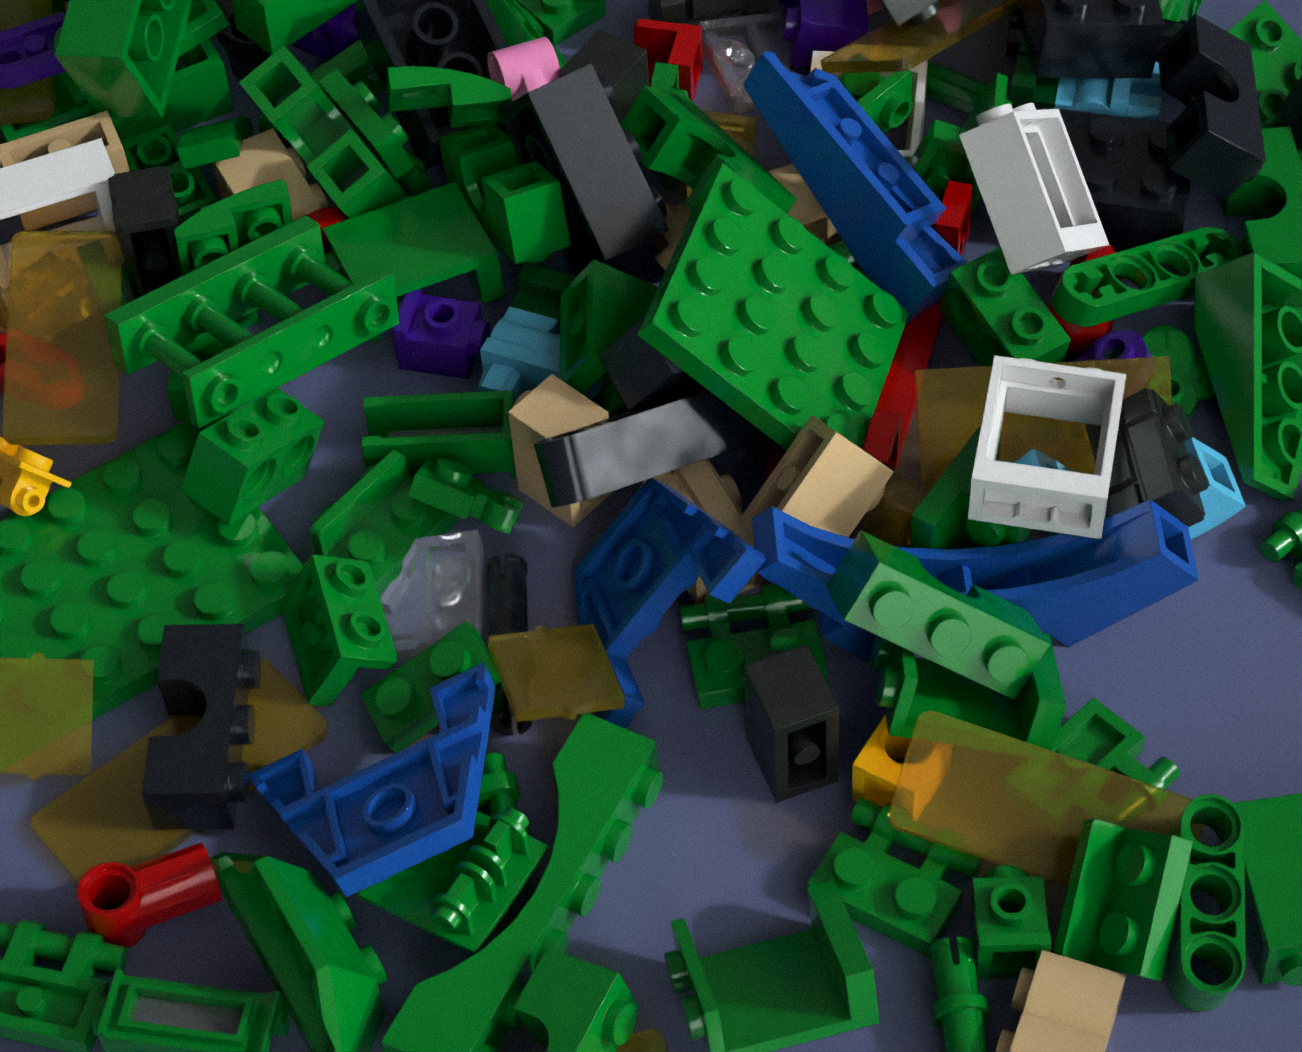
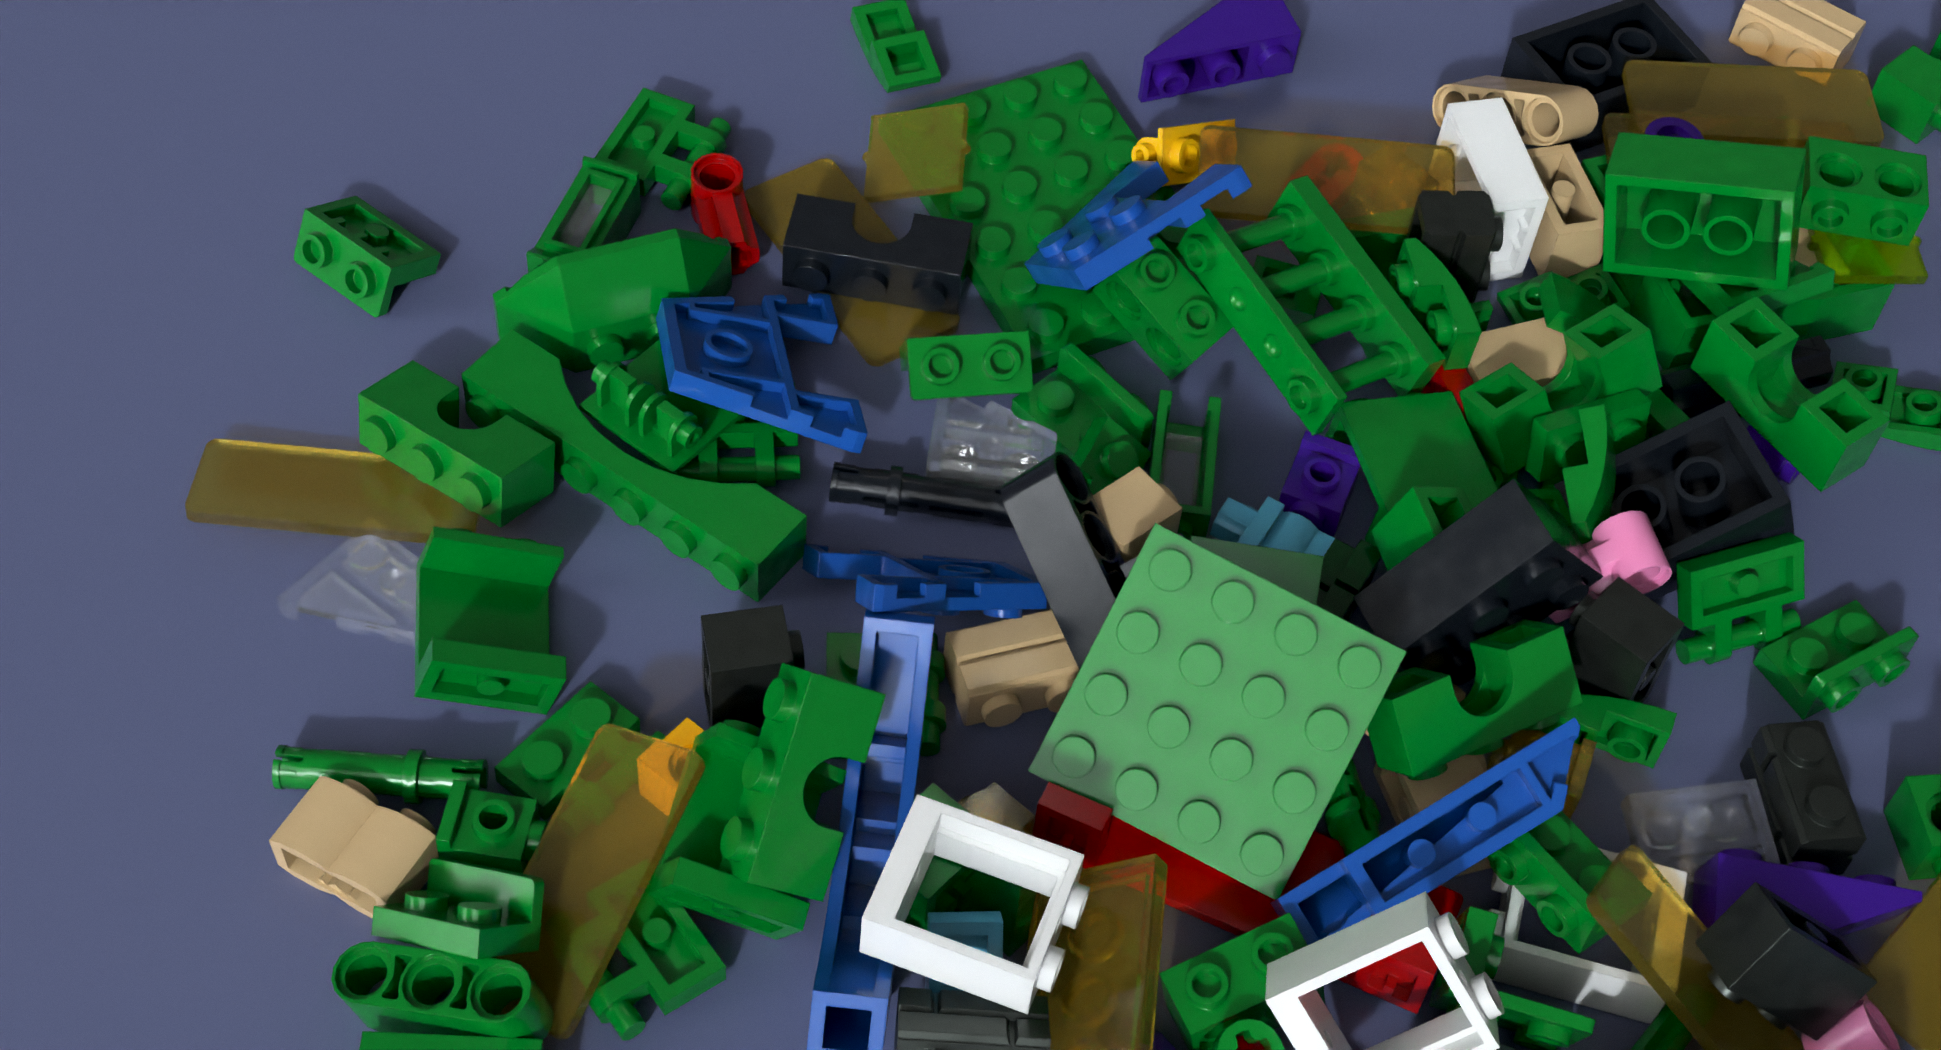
camera: 90 degrees right, 0 degrees up
(197, 485) = (1122, 221): none -> blue wing
(402, 700) = (892, 426): green plate -> none
(555, 672) = (859, 502): clear yellow piece -> none
(674, 45) = (1701, 752): red panel -> none
(822, 482) = (994, 723): tan brick -> none

